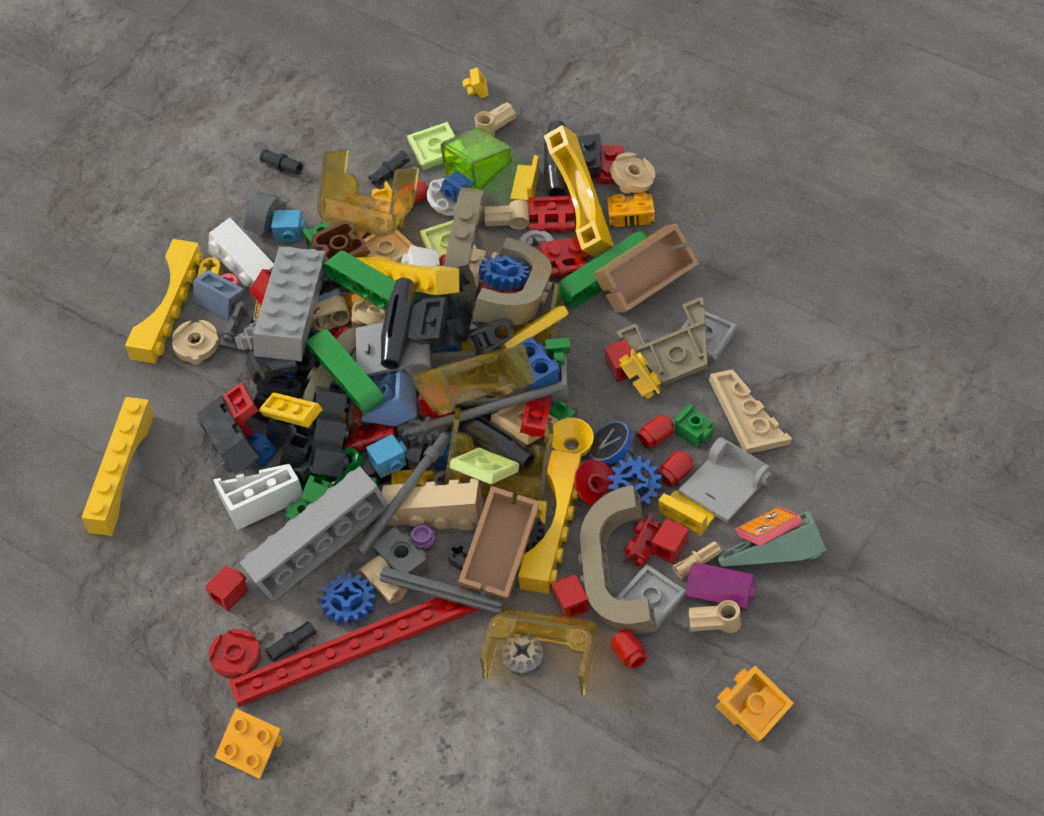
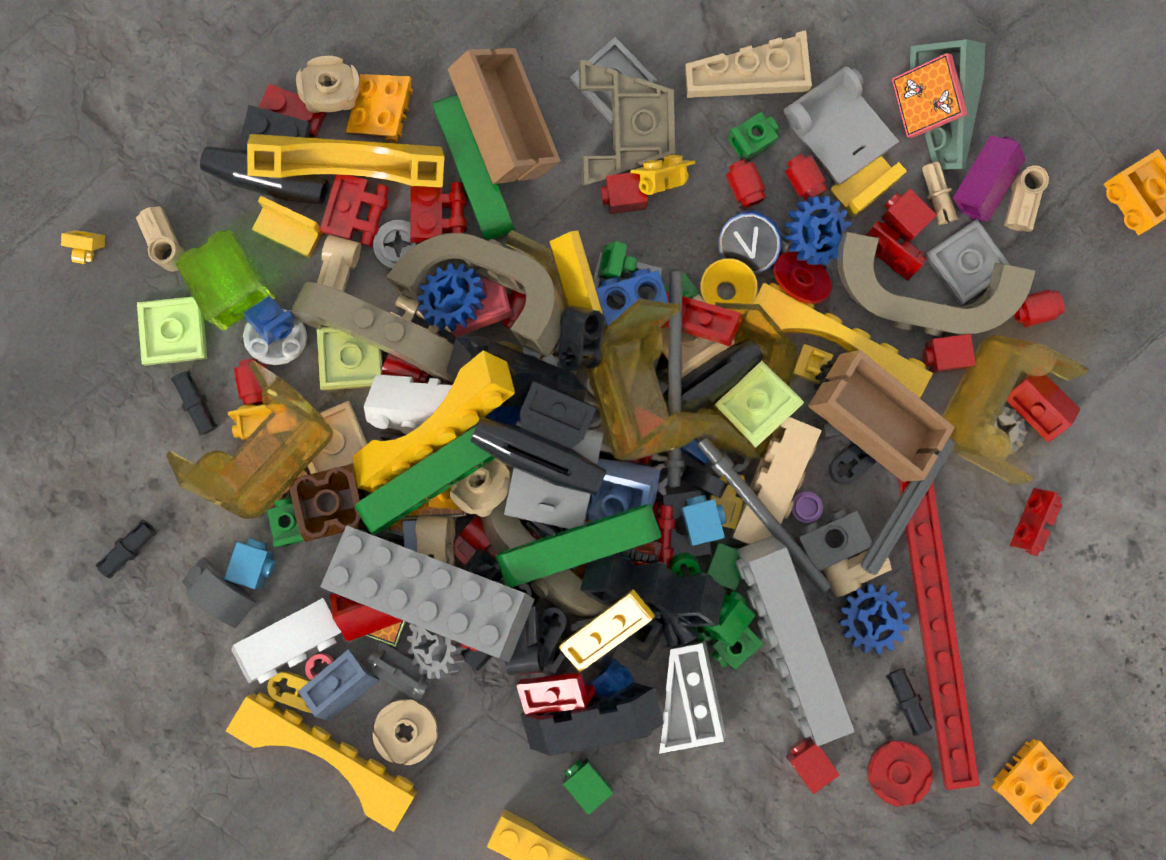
camera: 80 degrees left, 30 degrees up
(181, 453) = (587, 785): none -> green brick
(445, 694) = (1040, 509): none -> red hinge
(554, 675) = (1043, 405): none -> red panel

